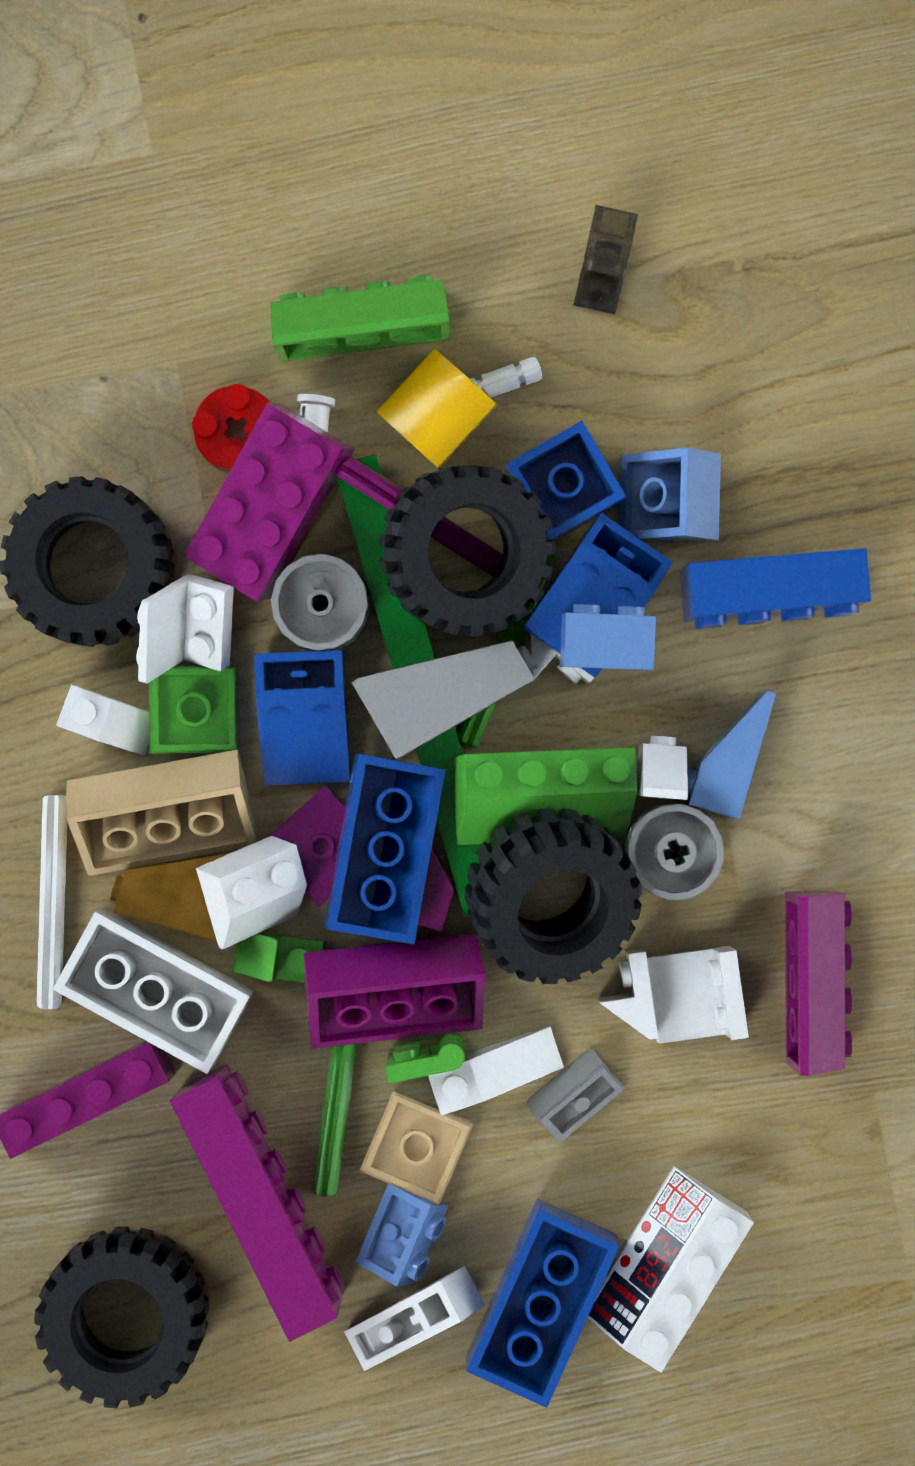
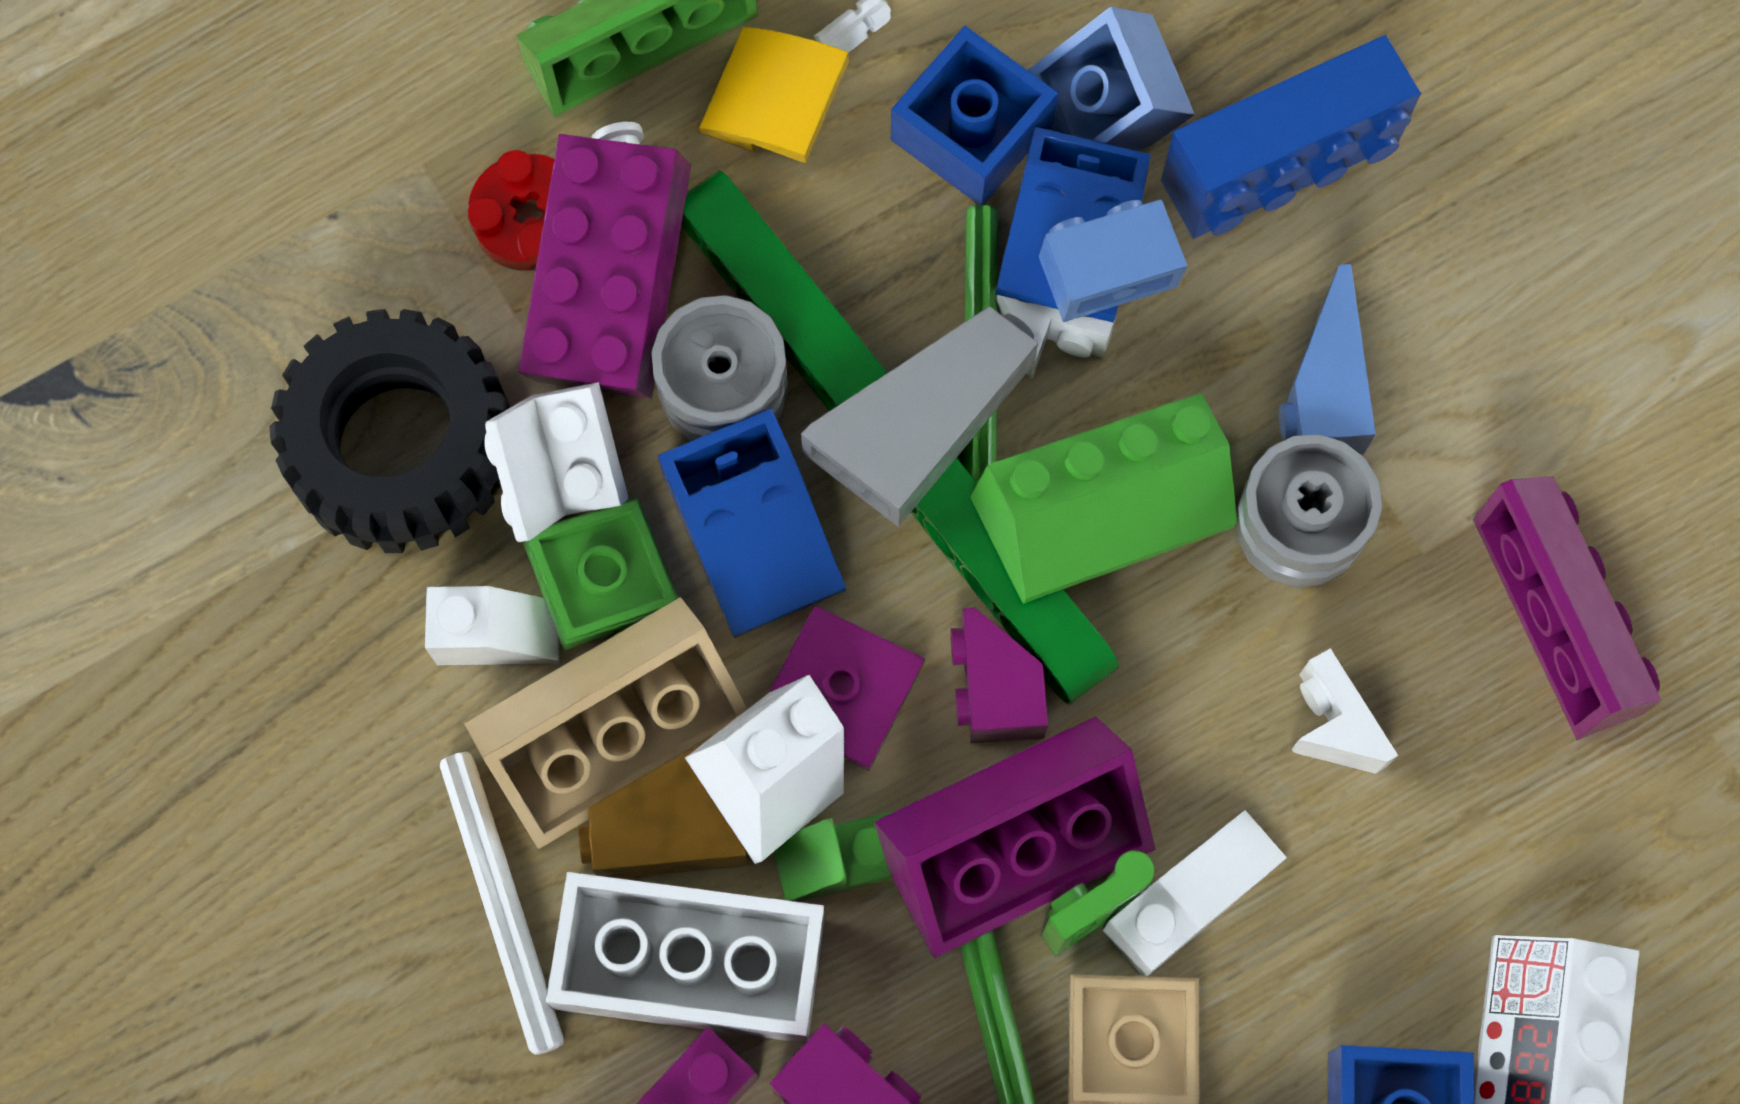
camera: 20 degrees left, 15 degrees down
(384, 849) = (928, 642): blue slope -> none
(445, 531) = (822, 220): magenta axle -> none
(522, 561) = (926, 163): black tyre -> none
(575, 1095) = (1318, 890): light grey slope -> none
(582, 934) = (1249, 625): black tyre -> none
(662, 769) = (1251, 414): white slope -> none
(697, 995) = (1429, 684): white bracket -> none

